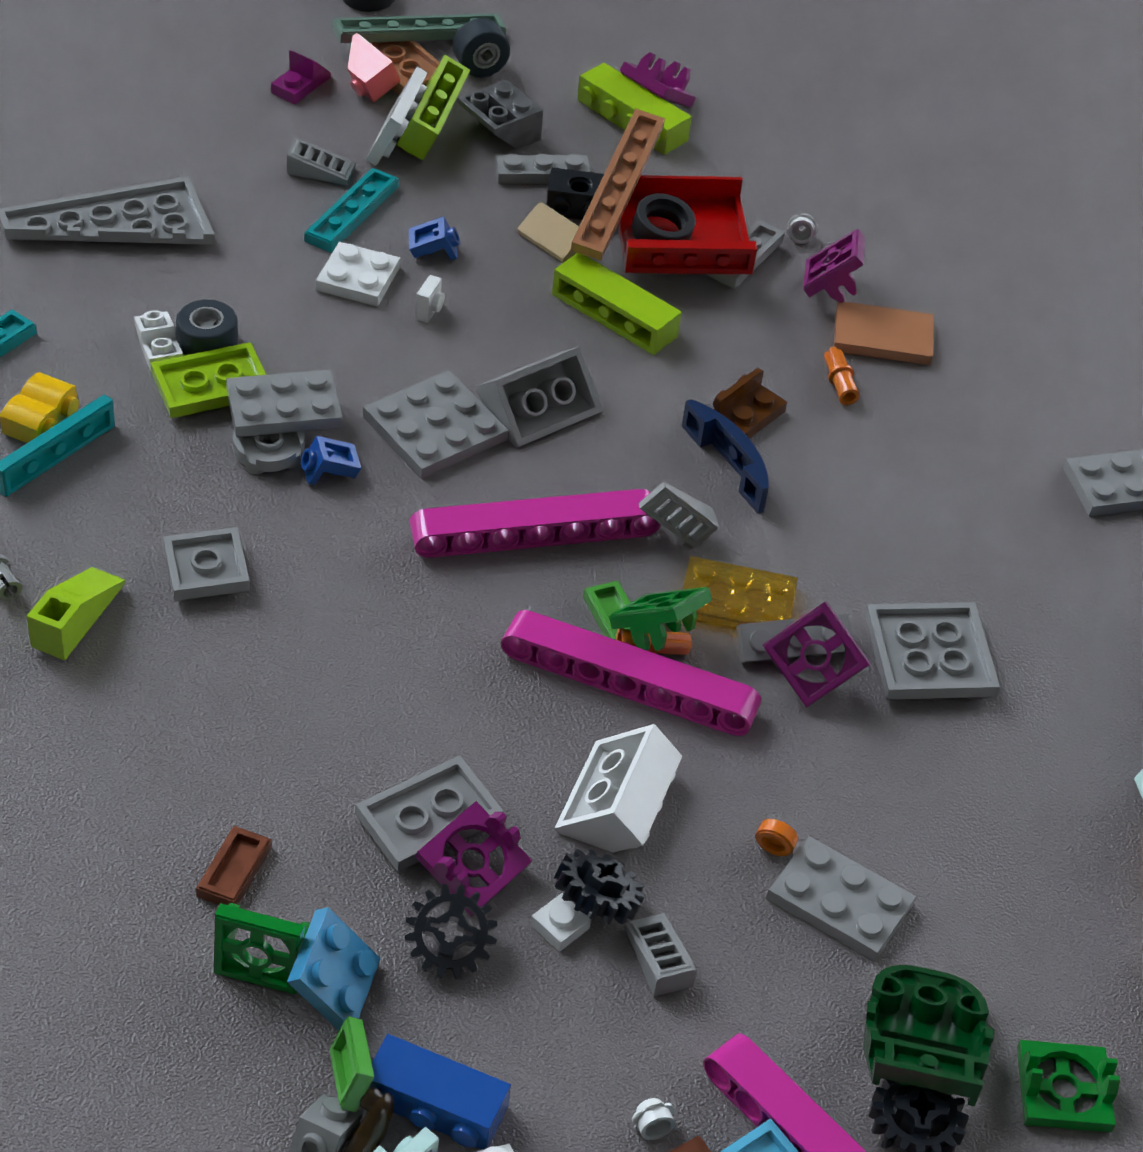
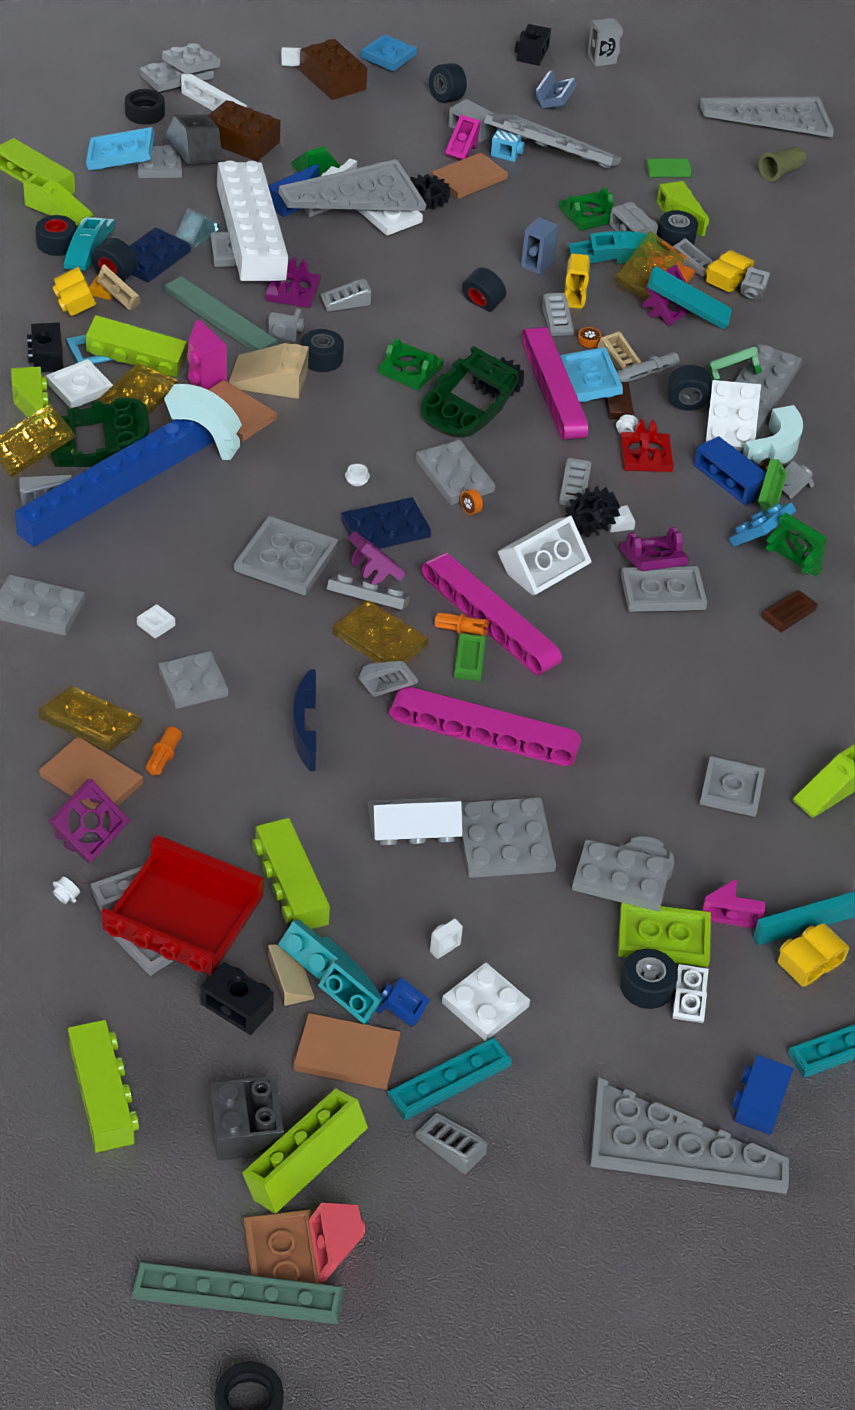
camera: 150 degrees left, 0 degrees up
(48, 272) = (763, 1094): none -> blue brick
(153, 421) = (732, 910): none -> dark pink slope
(300, 79) = (404, 1276): magenta slope -> none
(330, 457) = (605, 826): blue bracket -> none
(398, 117) = (354, 1142): white plate -> none
(431, 925) = (688, 521): black gear -> none
(457, 198) = (347, 1051): none -> nougat tile
(481, 47) = (201, 1214): black wheel -> none
(500, 231) = (334, 968): none -> teal slope
(535, 168) = (239, 1055): light grey plate -> none
(608, 1112) = (659, 461): none -> red piece
(617, 185) = (223, 935): nougat plate -> none
(654, 609) = (427, 609): green piece -> none
(661, 80) = (71, 1084): magenta piece -> none
(666, 207) = (209, 913): black tyre -> none
(750, 403) = (259, 754): reddish brown bracket -> none
(858, 762) = (388, 523): none -> dark blue plate
(887, 464) = (193, 679): none -> light grey plate
(937, 369) = (90, 718): none -> clear yellow plate
(958, 819) = (357, 475): none -> white plate
(986, 504) = (156, 621): none -> white plate

